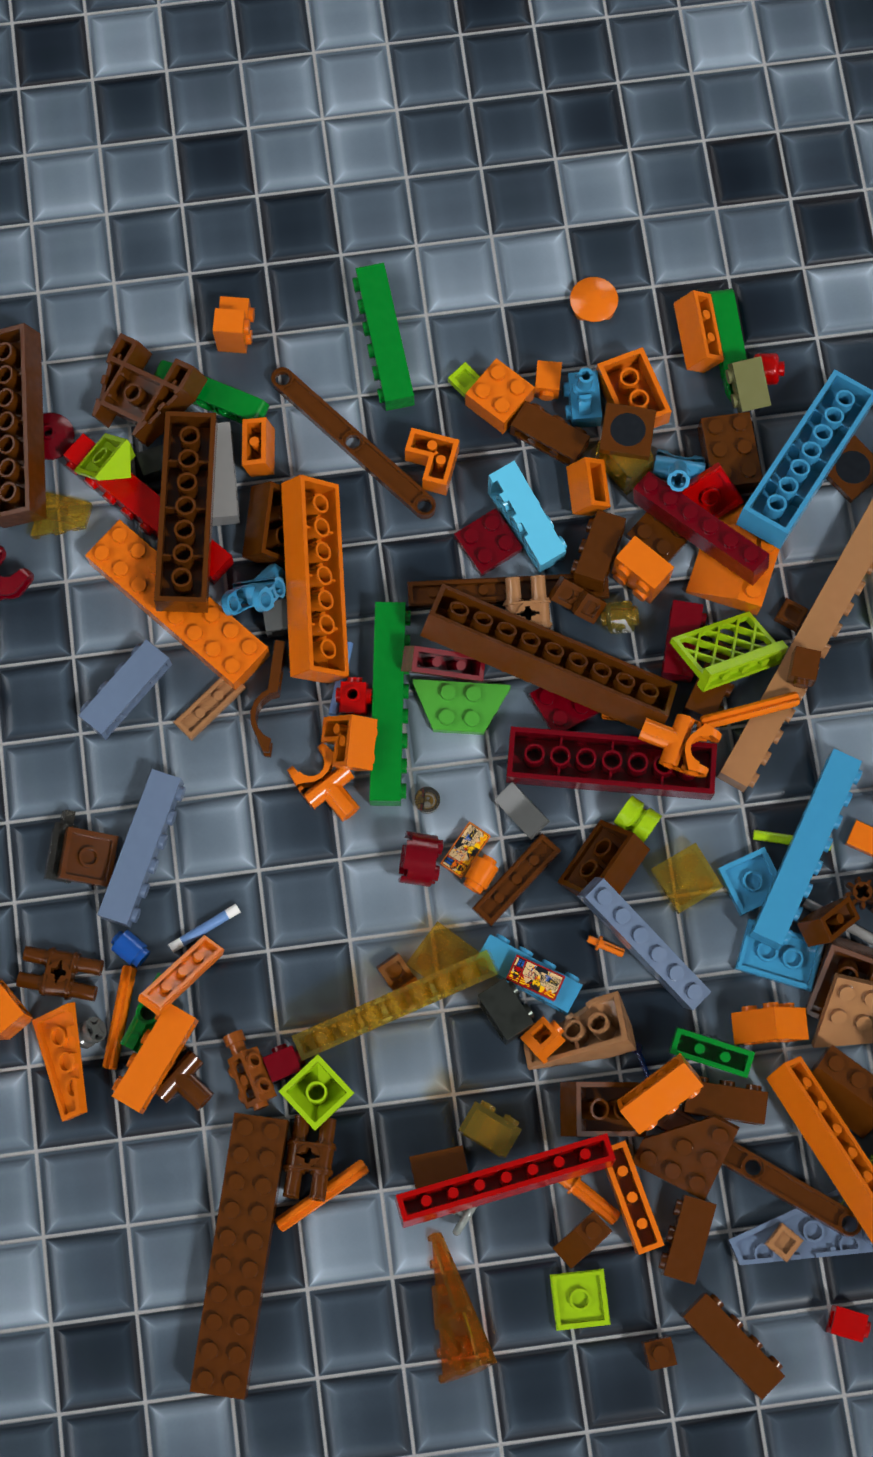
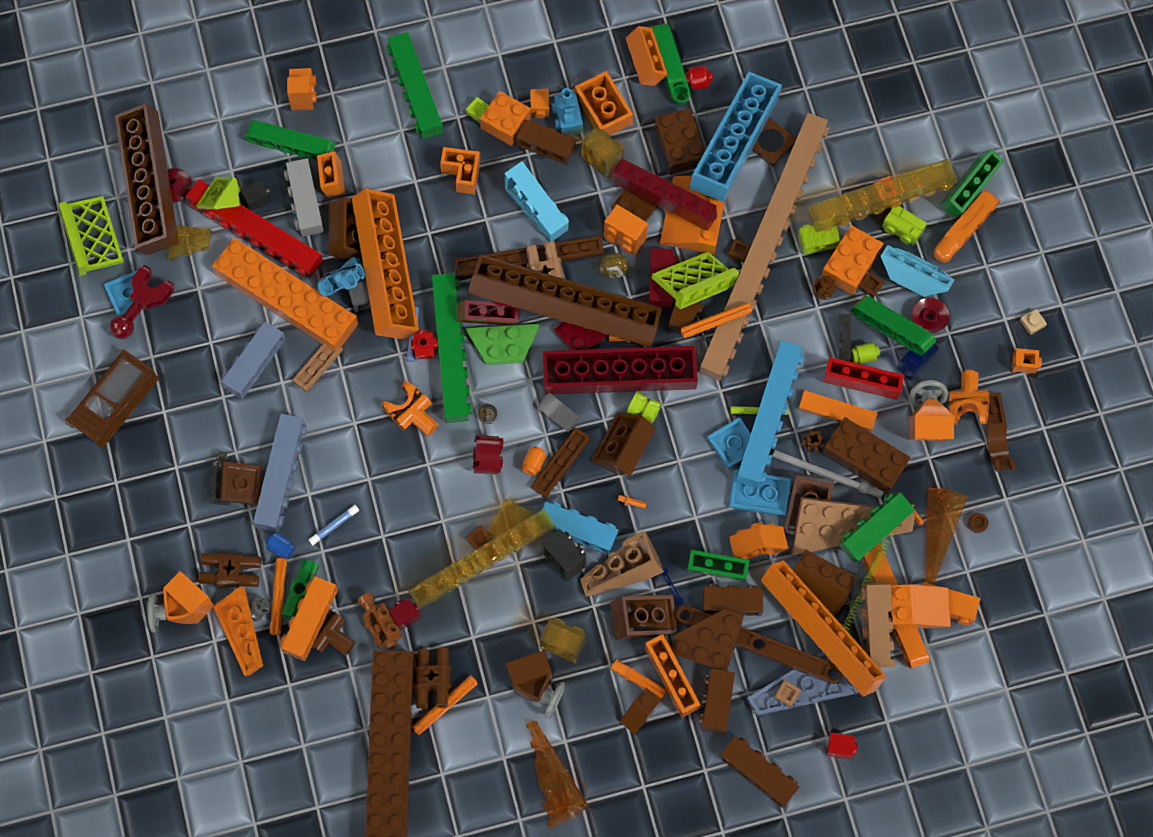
camera: 10 degrees left, 5 degrees down
(141, 395) = (241, 147): reddish brown wedge -> none
(180, 975) = (321, 557): orange tile -> none
(186, 512) = (284, 225): reddish brown brick -> none
(273, 692) = (360, 352): reddish brown piece -> none
(316, 1092) = (431, 629): lime slope -> none
(352, 741) = (428, 375): orange brick -> none
(366, 454) = (411, 172): reddish brown beam -> none
(465, 850) = (519, 446): tile -> none
(488, 542) = (510, 224): dark red plate -> none
(504, 1180) = (577, 669): red brick -> none
(535, 978) = (583, 528): tile -> none
(543, 1038) = (594, 570): orange brick -> none
(577, 599) = (580, 257): reddish brown slope -> none
(579, 1299) = (644, 755): lime tile -> none
(588, 486) = (578, 175): orange piece -> none
(594, 299) = (566, 42): orange dish -> none
(598, 550) = (592, 220): reddish brown brick -> none
(627, 431) = (602, 131): reddish brown tile -> none
(644, 943) = (659, 493): sand blue brick -> none
(659, 1352) = (706, 783): reddish brown brick -> none
(660, 1094) = (684, 598): orange brick -> none
(677, 469) = (643, 155): dark azure connector -> none
(677, 743) = (666, 346): orange connector -> none
(686, 878) = (685, 446): clear yellow plate -> none
(714, 491) = (670, 167): red tile -> none
(748, 384) = (687, 89): olive brick -> none
(803, 667) = (751, 284): reddish brown brick -> none
(828, 922) = (792, 463): reddish brown slope -> none

